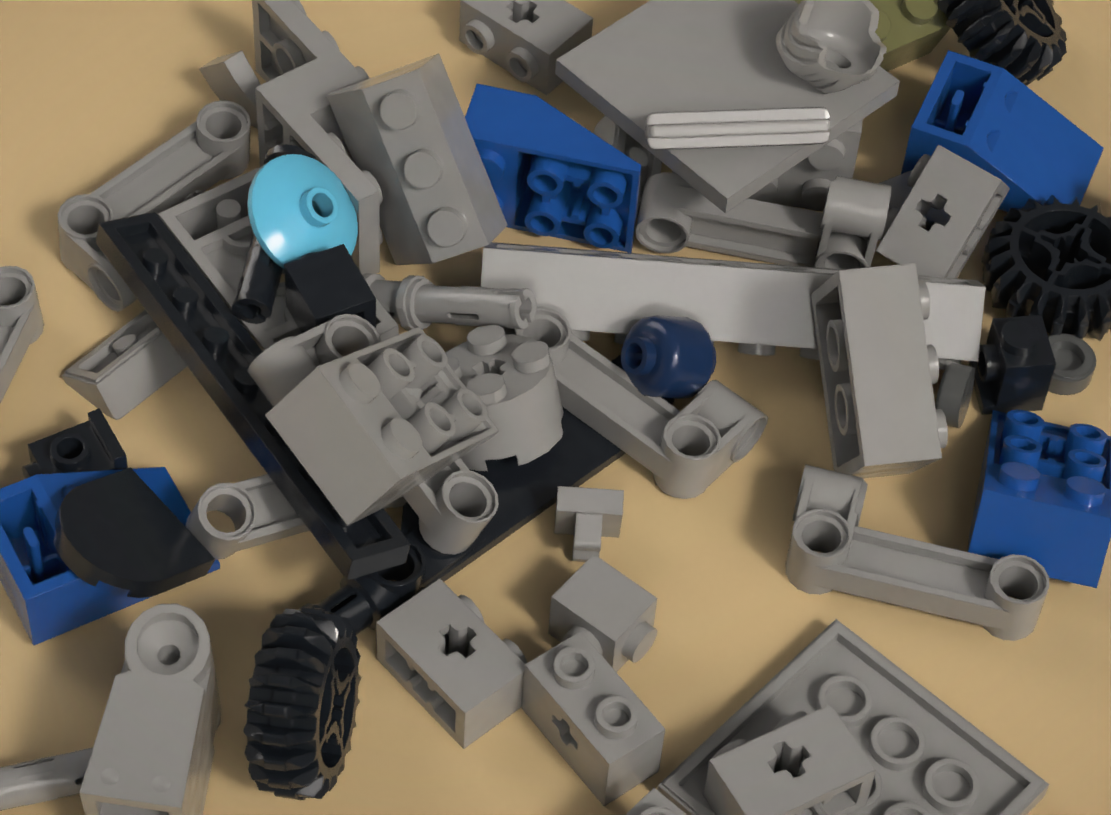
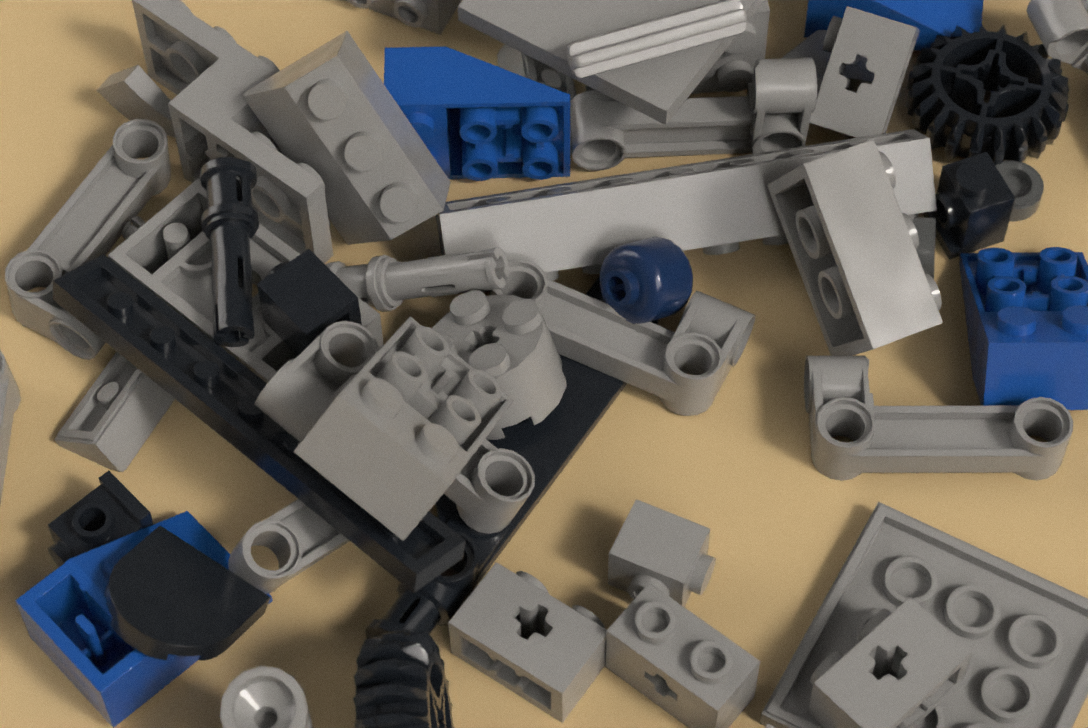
camera: 10 degrees left, 5 degrees up
(300, 209) = (253, 222): medium azure dish -> none
(588, 516) = (615, 460): light grey tile -> none

